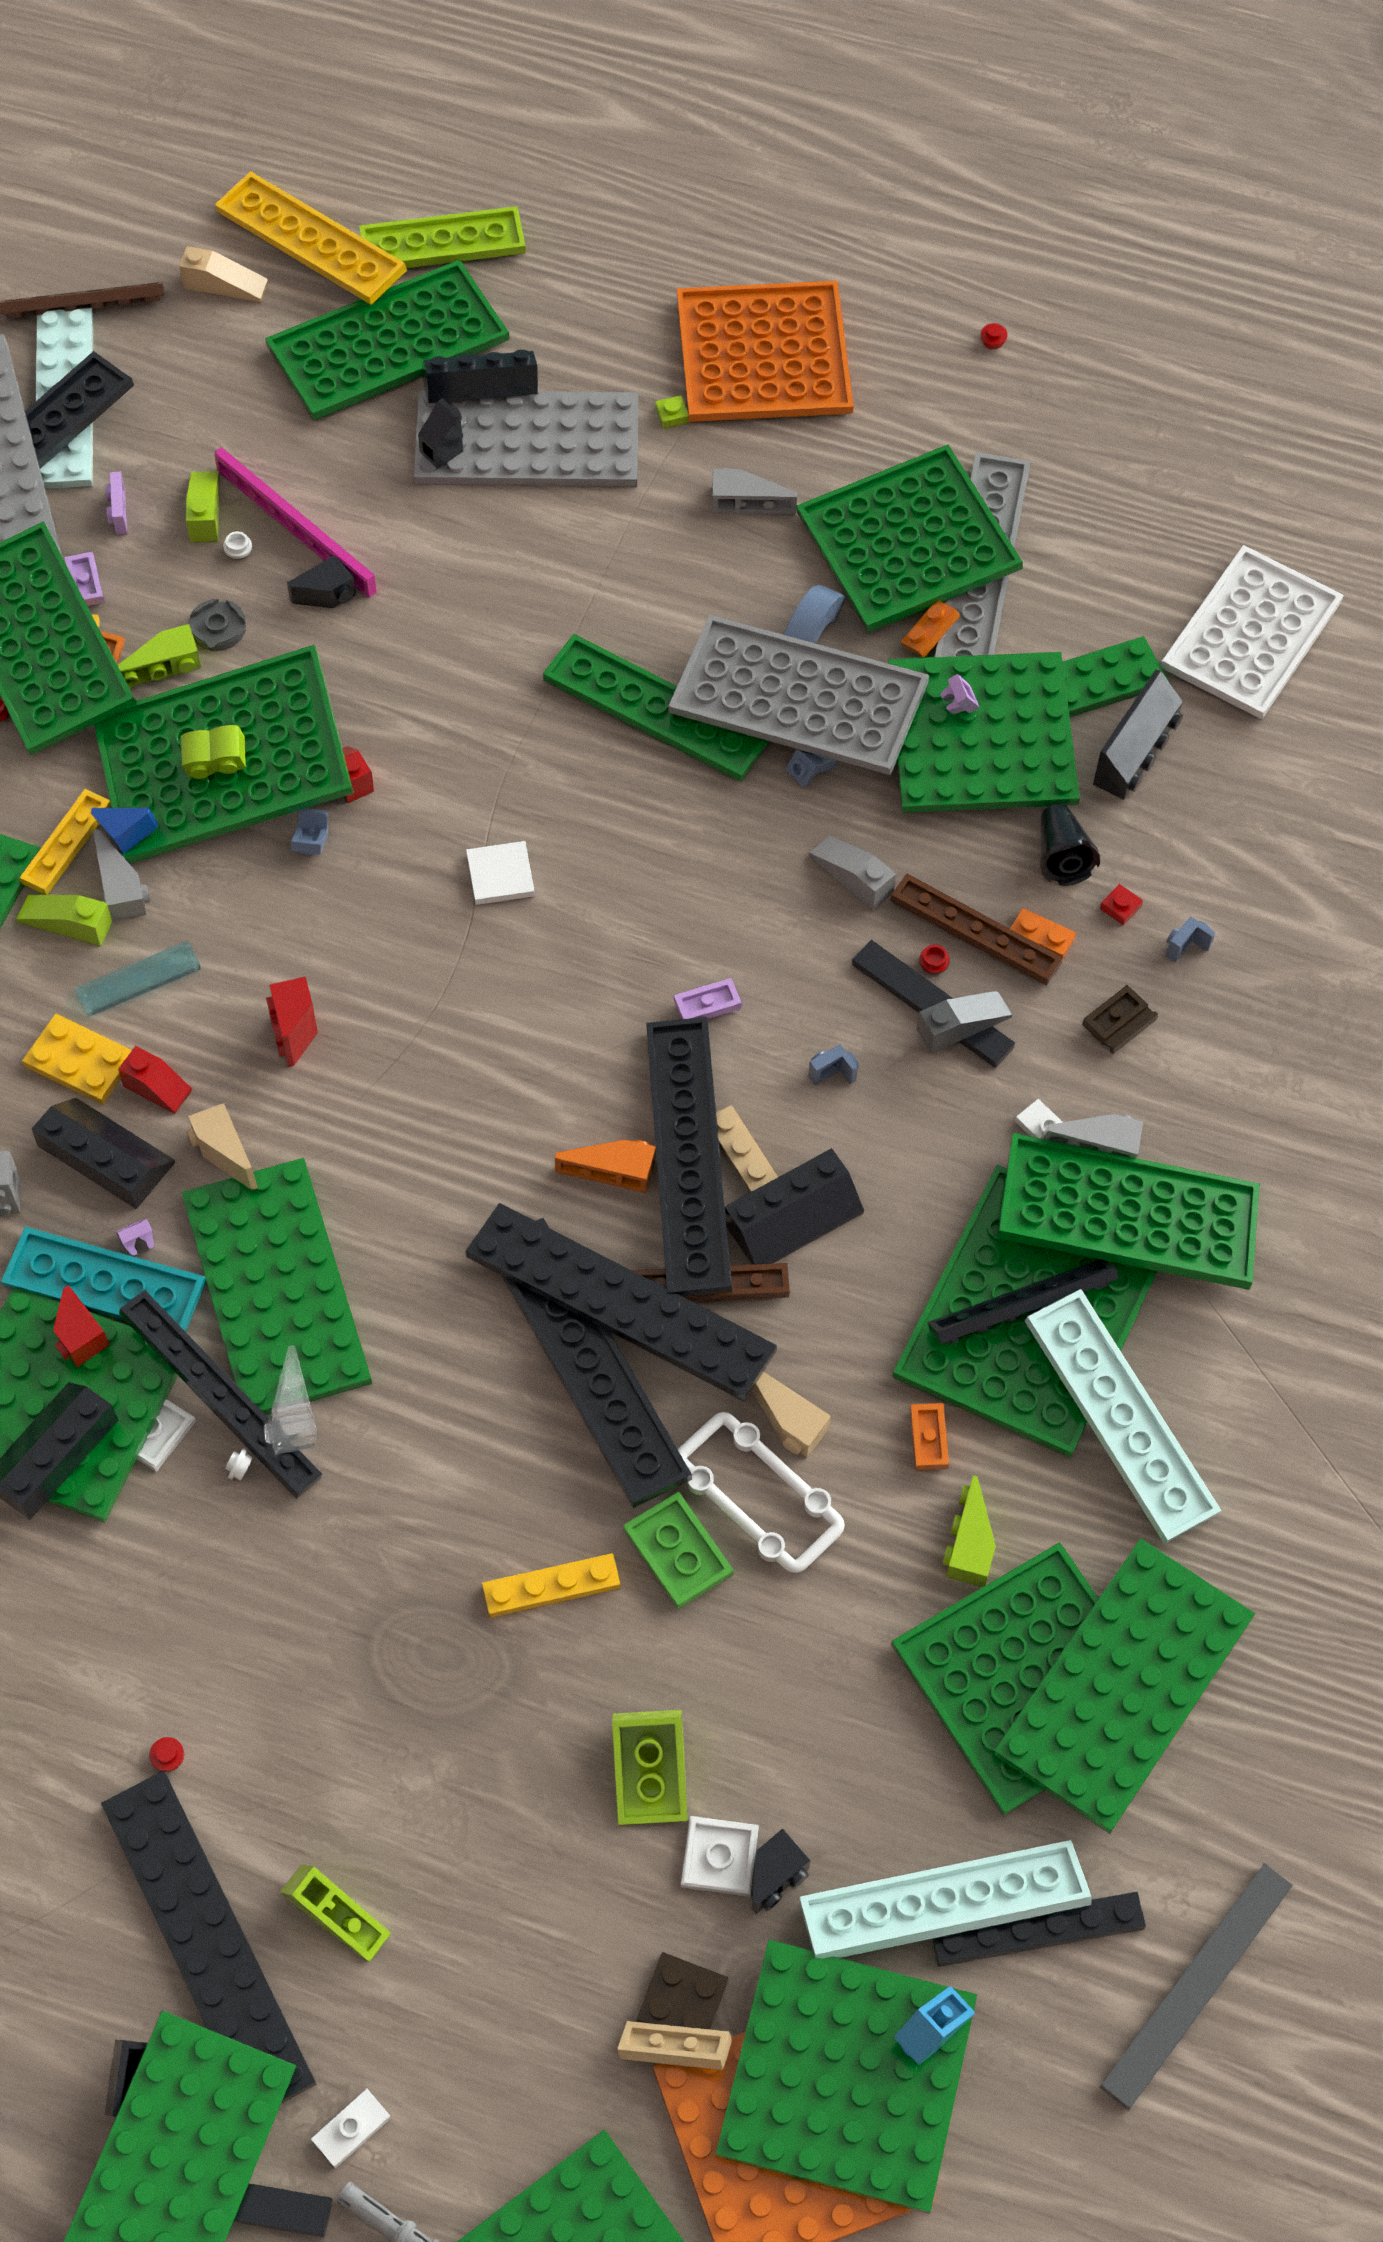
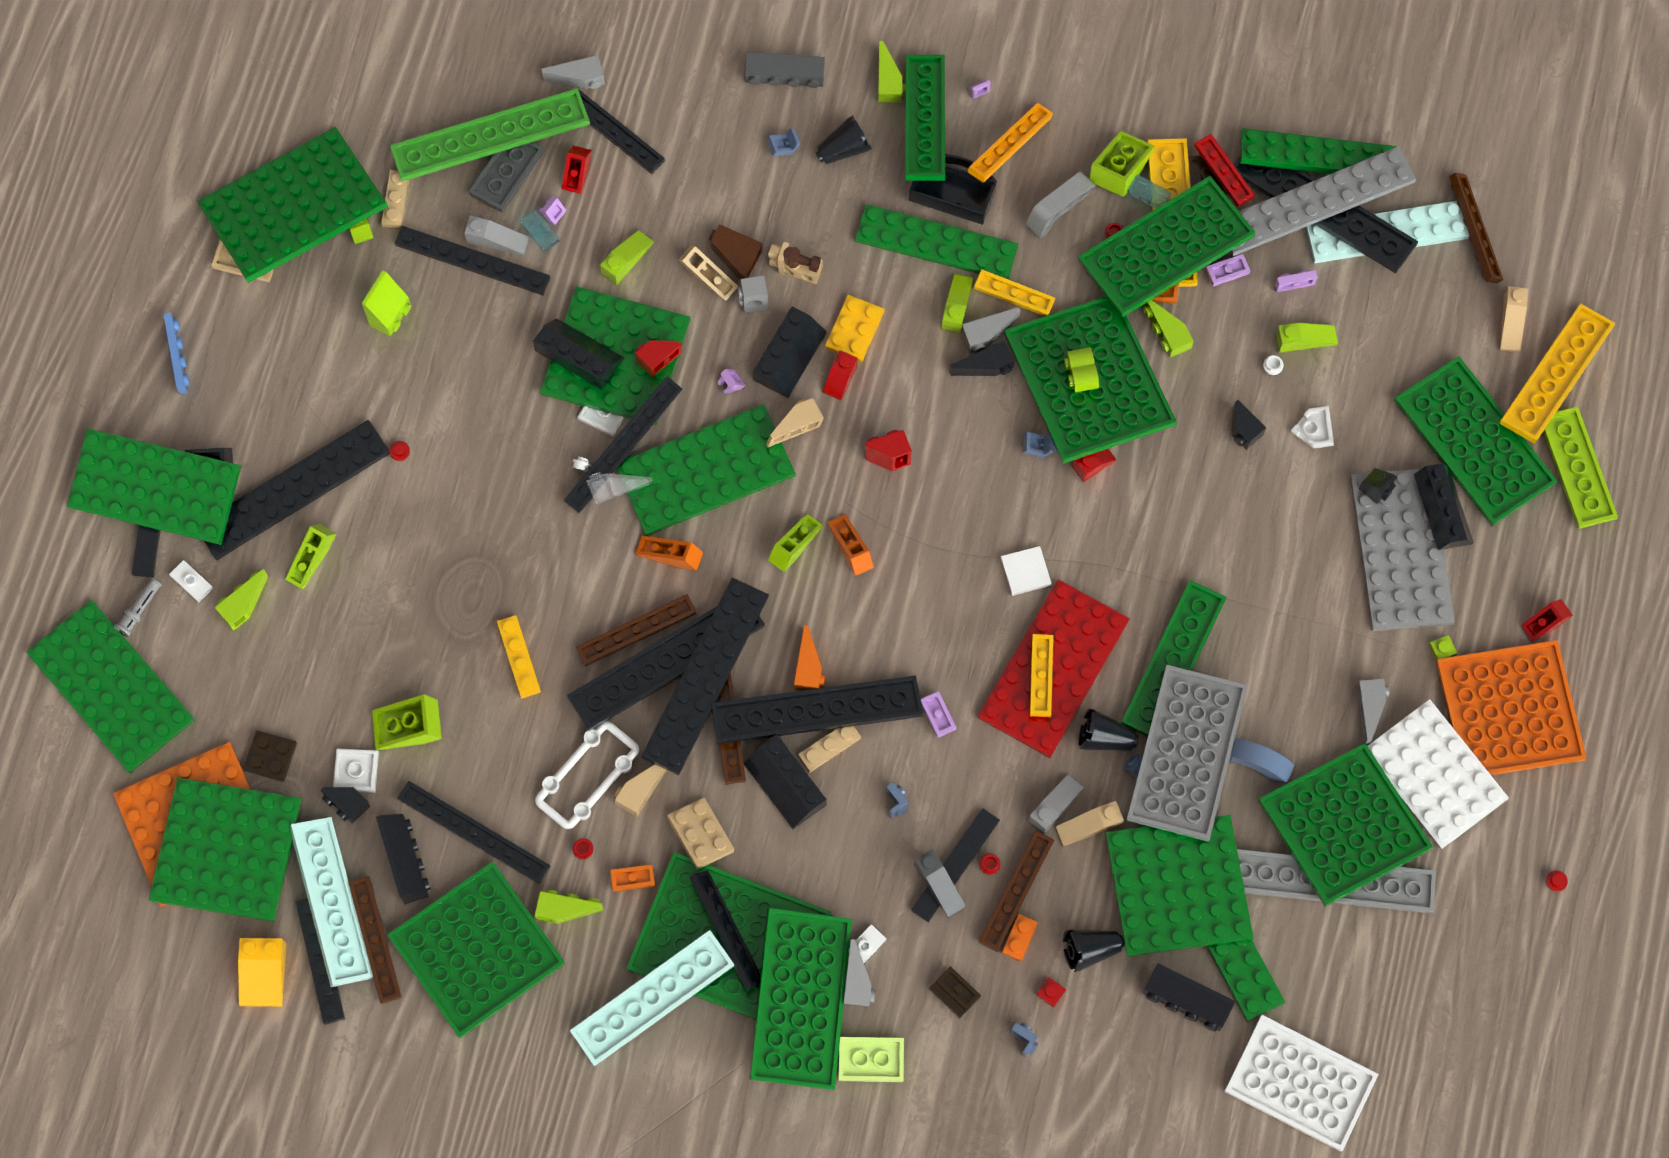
camera: 85 degrees right, 10 degrees up
(99, 1276) = (698, 367): teal plate -> none
(125, 825) = (1021, 324): blue slope -> none
(137, 978) = (918, 354): clear light blue tile -> none
(171, 885) = (988, 362): none -> black slope
(217, 633) = (1199, 362): dark grey tile -> none
(292, 519) = (1297, 399): dark pink tile -> none
(340, 506) = (1315, 428): none -> white plate
(407, 1345) = (670, 552): none -> orange slope
(407, 2035) = (241, 603): none -> lime slope
(418, 1166) = (794, 542): none -> lime slope
(430, 1090) = (851, 544): none -> orange slope
(530, 1404) = (636, 630): none -> reddish brown plate
(648, 296) = (1547, 620): none -> red slope
(651, 854) = (1082, 642): none -> red plate
(666, 858) = (1041, 675): none -> yellow plate
(674, 2045) = (239, 750): tan plate -> none
(678, 1550) = (545, 728): bright green plate -> none
(756, 798) = (1105, 733): none -> black cone
(839, 1671) = (474, 832): none -> black plate
(844, 432) = (1437, 774): none -> white plate
(866, 1333) = (700, 833): none -> tan plate
(877, 1507) = (582, 848): none -> red plate
(880, 1779) = (403, 858): none -> black slope
(884, 826) = (1090, 823): none -> tan slope
(930, 629) = (1265, 844): orange plate -> none
(933, 2025) = (249, 893): dark azure slope -> none
(963, 696) = (1197, 864): lavender tile -> none
(998, 1837) = (375, 940): none -> reddish brown plate
(1056, 2025) = (261, 971): none -> yellow slope
(1124, 1685) = (472, 1005): green plate -> none
(1195, 1987) = (290, 1056): dark grey tile -> none
(1215, 1132) = (871, 1059): none -> yellowish green plate

